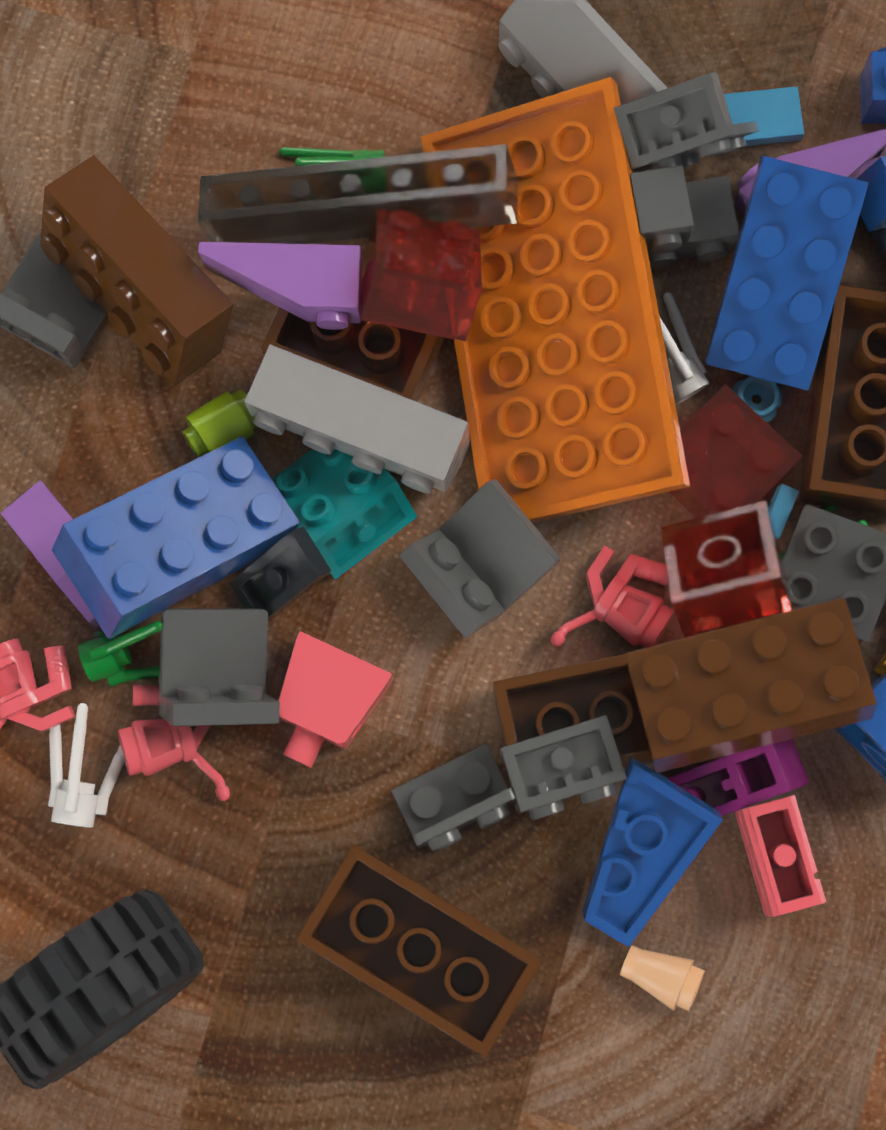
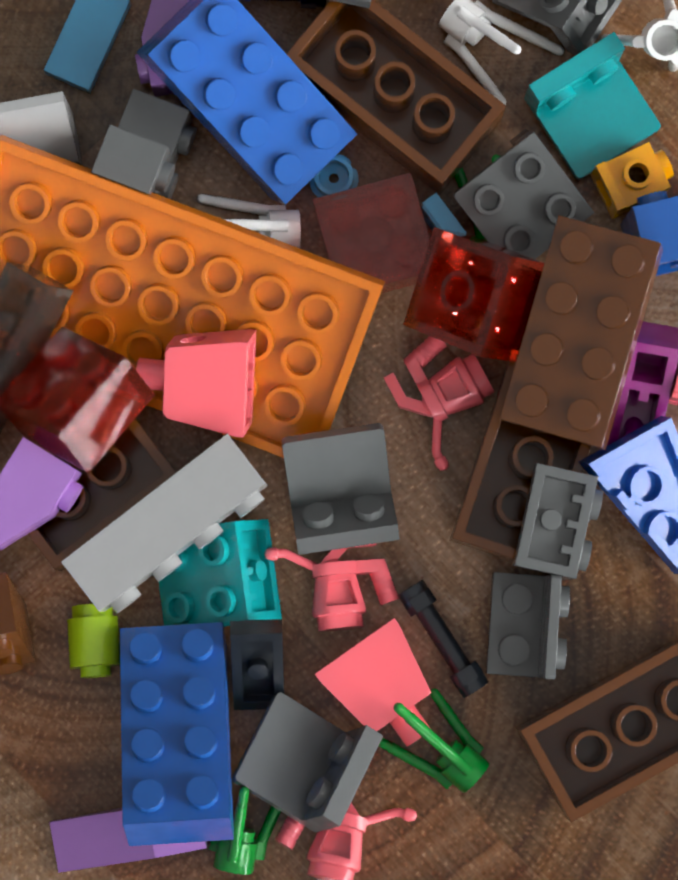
camera: 65 degrees left, 5 degrees up
(295, 812) = (459, 762): none -> green plant
(388, 612) = (337, 592): none -> coral piece
(420, 692) = (466, 675): none -> black bar
(507, 383) = (206, 379): none -> coral torso
(679, 123) = (74, 106): dark grey bracket -> none

